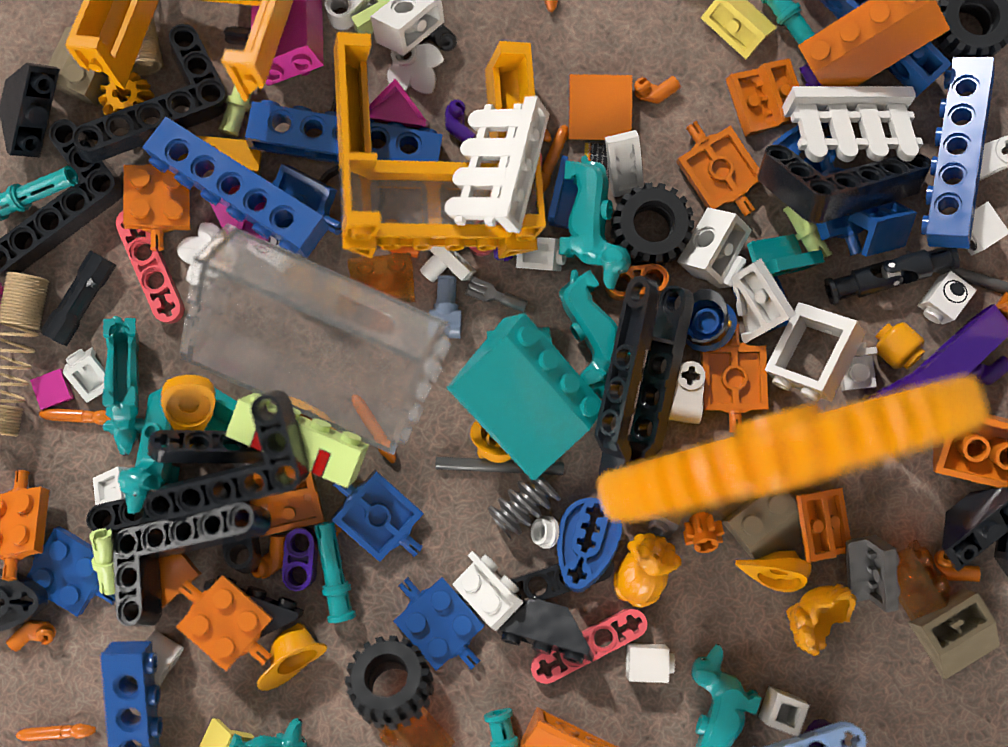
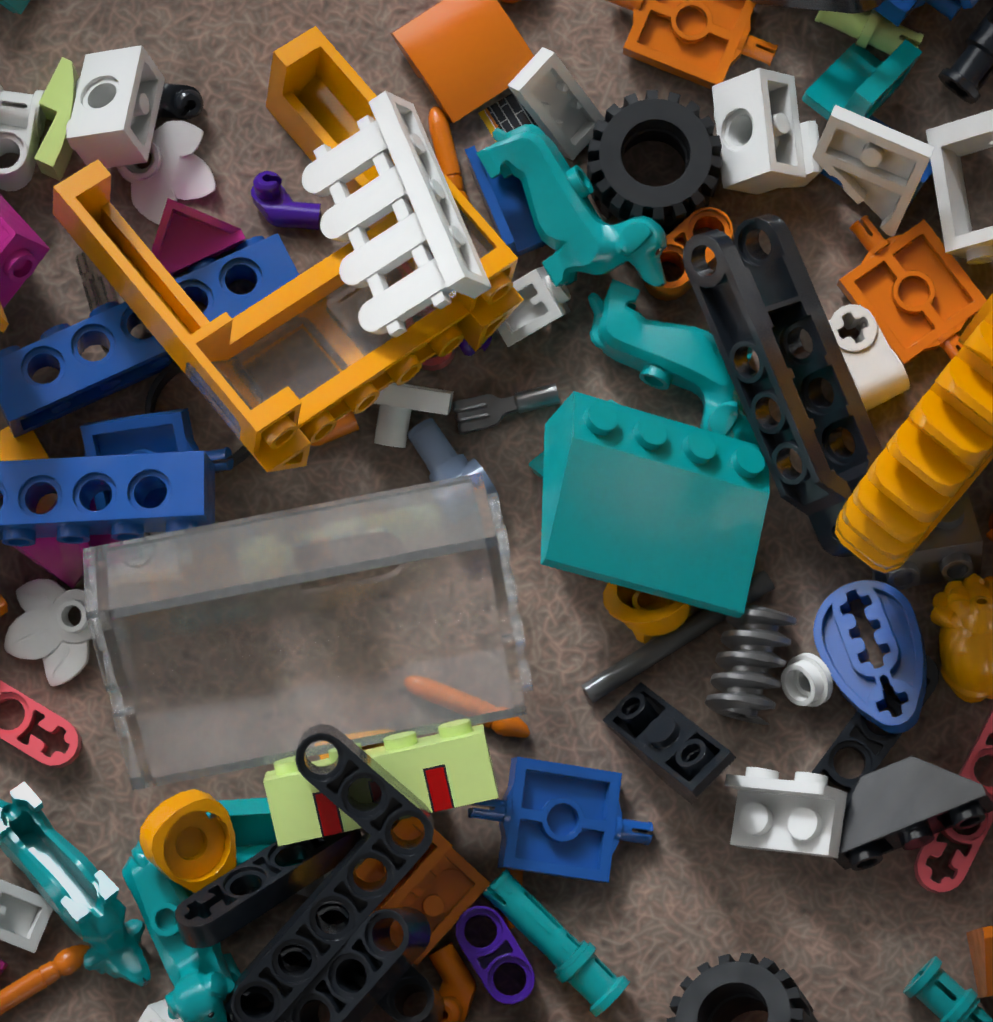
camera: 35 degrees left, 5 degrees down
(386, 273) = (333, 473): clear orange bracket -> none
(439, 623) = (750, 907): blue plate -> none
(455, 516) = (669, 742): none -> black slope
(711, 321) = (829, 237): blue piece -> none

